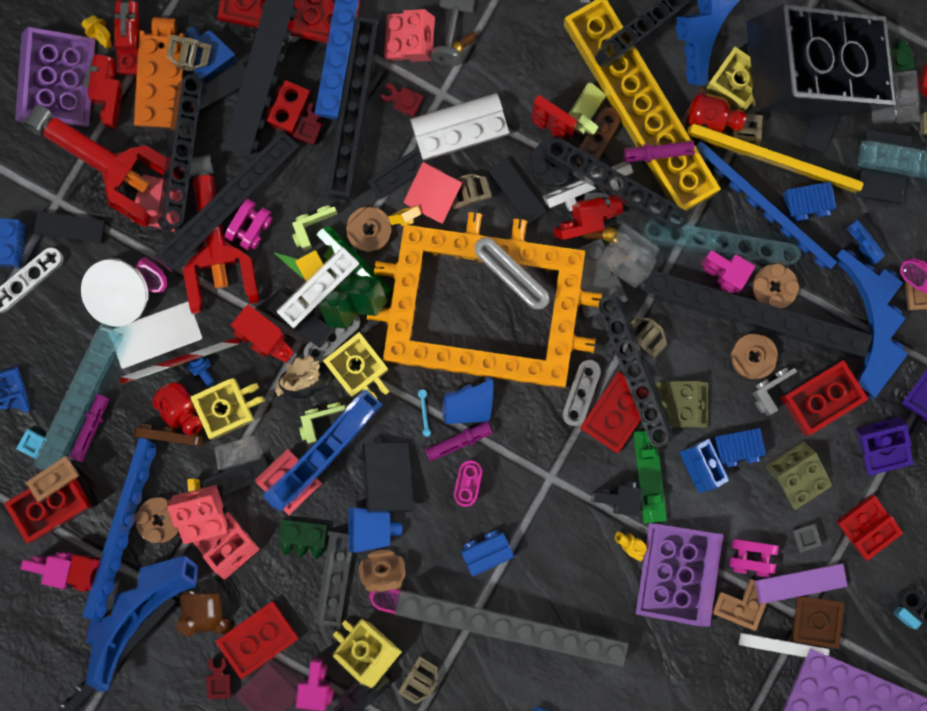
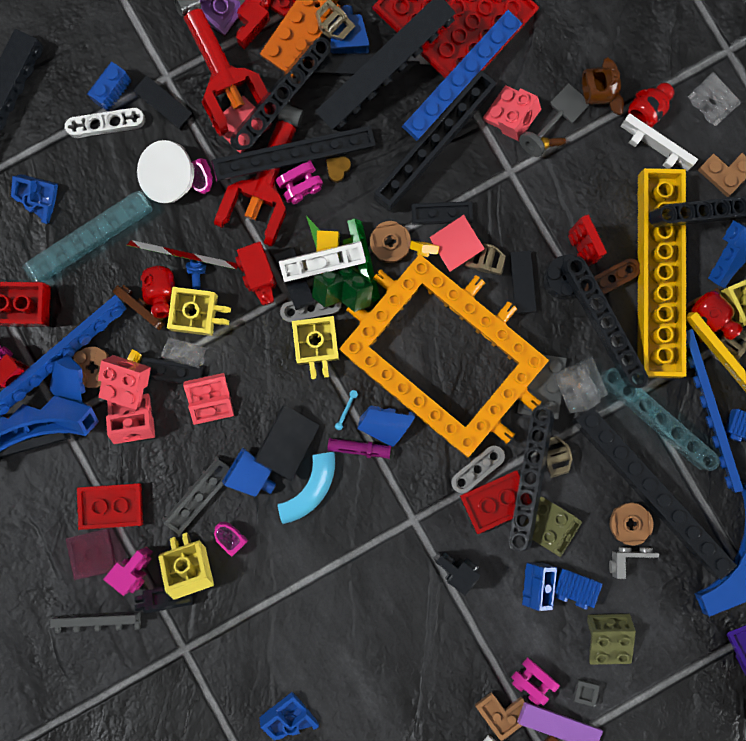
camera: 30 degrees right, 0 degrees up
(30, 443) = (31, 248): medium azure tile -> none
(52, 479) = (27, 285): medium nougat plate -> none
(89, 428) = (90, 259): magenta pin -> none
(144, 545) = (67, 380): none -> blue slope
(157, 335) = (179, 225): white sticker -> none
(201, 614) = (78, 460): reddish brown piece -> none
(219, 683) = (59, 521): dark red plate -> none
(275, 189) = (338, 167): none -> pearl gold tile
(293, 109) = (389, 115): red brick -> none
(301, 237) = (334, 216): yellowish green bracket -> none
(302, 536) = (194, 448): dark green plate -> none
(303, 378) = (268, 326): tan hair -> none
(308, 128) = (391, 135): dark red plate -> none
(308, 430) = (247, 369): yellowish green bracket -> none
(323, 452) = (246, 393): blue arch -> none
(384, 581) = (232, 521): medium nougat plate -> none
(405, 101) = (479, 160): dark red plate -> none
(420, 677) = (207, 611): dark tan piece -> none
(440, 508) = (313, 492): none -> medium azure brick
(459, 126) = (509, 205): white brick -> none
(468, 483) = (346, 486): dark pink brick -> none
(486, 553) = (327, 549): blue brick -> none
(511, 273) = (480, 342): light grey piece -> none
(511, 627) = (310, 620): dark grey brick -> none
(568, 193) = (562, 308): white hinge -> none
(585, 109) = (617, 249): yellowish green bracket -> none
(589, 215) = (568, 334): red plate -> none
(607, 234) = (573, 357): piece -> none
(632, 546) = (444, 613): yellow piece -> none
(649, 478) = (490, 568): green hinge -> none
(658, 151) = (655, 317): magenta pin -> none
(679, 574) = (467, 659): medium lavender slope -> none
(732, 273) = (653, 448): dark pink brick -> none
(775, 273) = (692, 475): medium nougat plate -> none
(824, 398) = (667, 591): red brick -> none
(869, 527) = (641, 715): red slope -> none
(885, 445) = (693, 658): dark purple brick -> none

